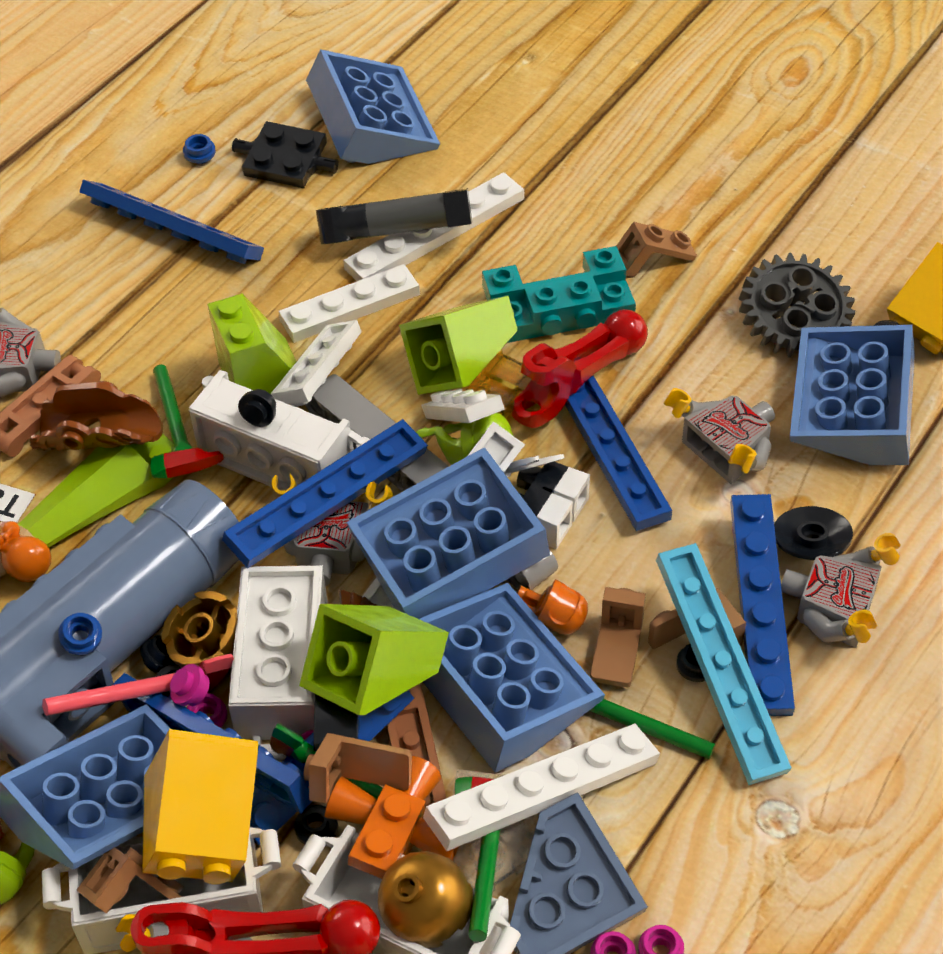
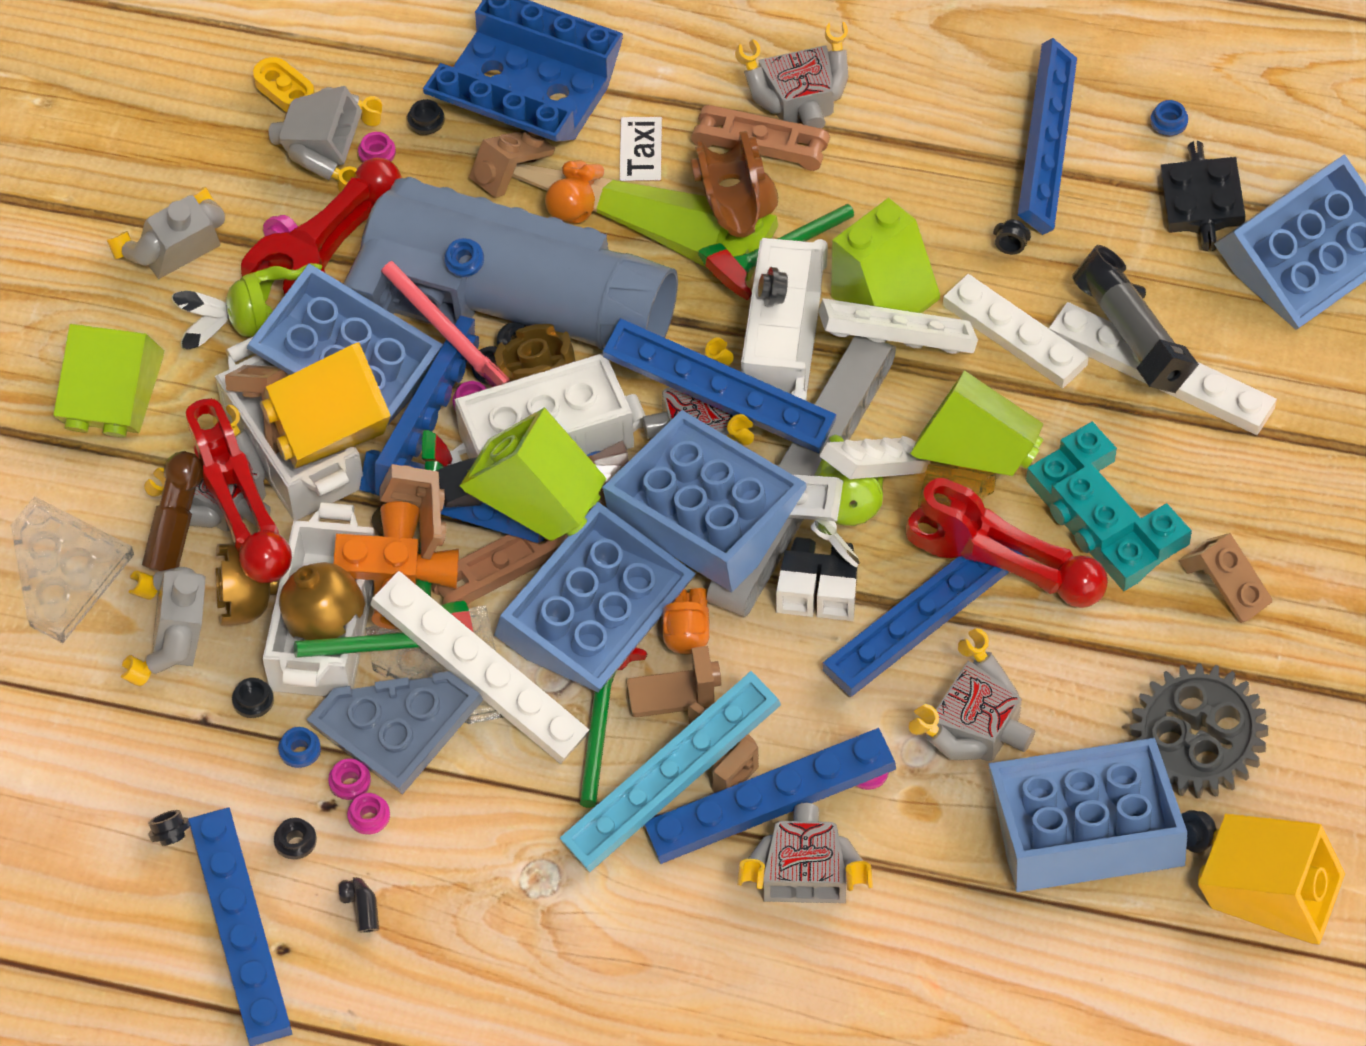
camera: 70 degrees right, 5 degrees up
(189, 685) = (463, 363): dark pink plate -> none
(256, 273) = (1011, 236): none -> black plate
(813, 532) = (879, 807): black dish -> none

